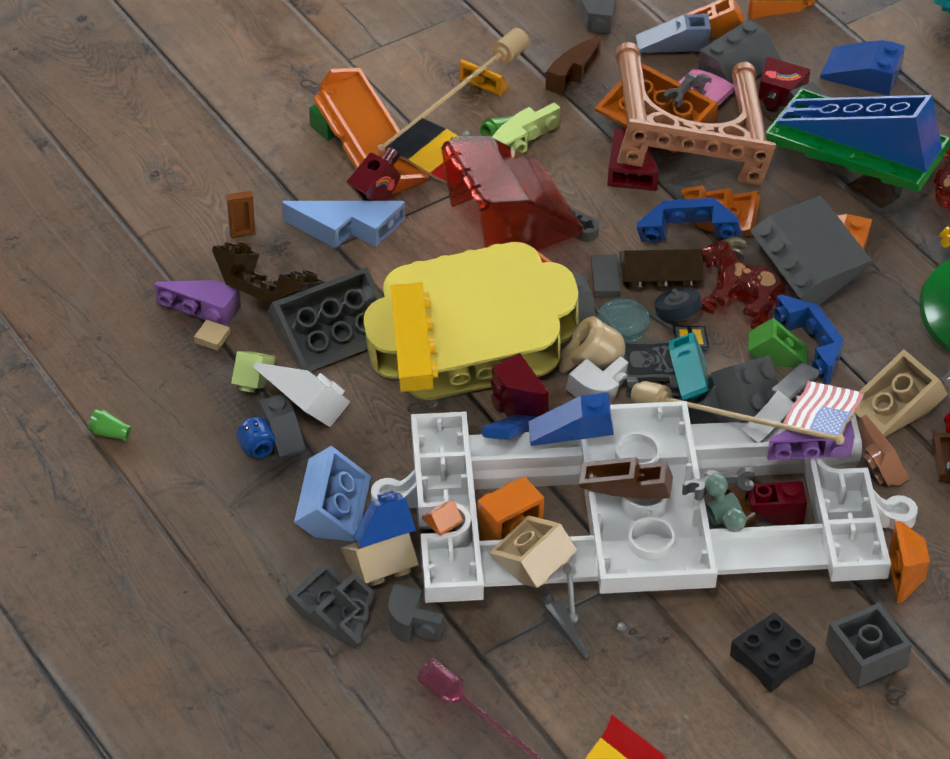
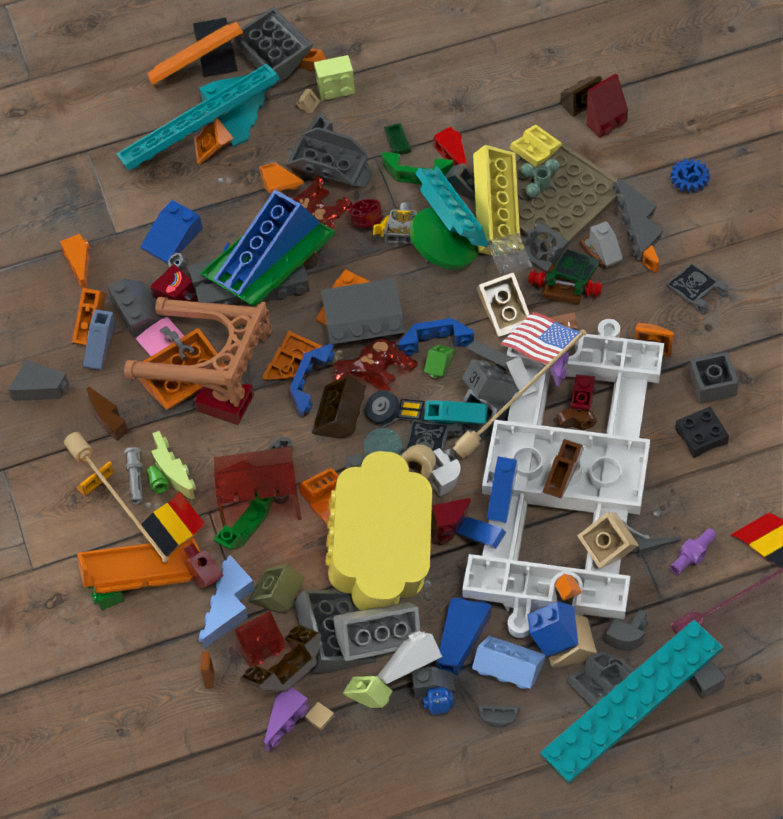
camera: 70 degrees left, 10 degrees up
(107, 425) = (396, 802): bright green cone -> none
(253, 506) = (498, 715): none -> dark grey tile
(295, 248) = (259, 639): none -> clear red slope
(305, 634) = (631, 701): none -> teal plate
(335, 349) = (375, 630): none -> light grey slope
(362, 712) = (708, 680): none -> dark grey slope
(367, 441) = (461, 631): none -> blue slope
(377, 258) = (277, 588): none -> olive slope
(412, 338) = (404, 566): yellow brick -> none
(430, 201) = (246, 525): none -> green slope
(506, 508) = (561, 547): orange brick -> none
(509, 108) = (134, 468): none -> light grey pin
(564, 670) = (693, 551): none -> medium lavender pin
(605, 276) = (334, 446): dark grey tile -> none
(698, 485) = (578, 428): dark grey piece -> none
(725, 508) = (592, 423): sand green piece -> none
(823, 79) = (179, 260): none -> dark grey tile
(833, 180) = (294, 284): none -> dark grey arch

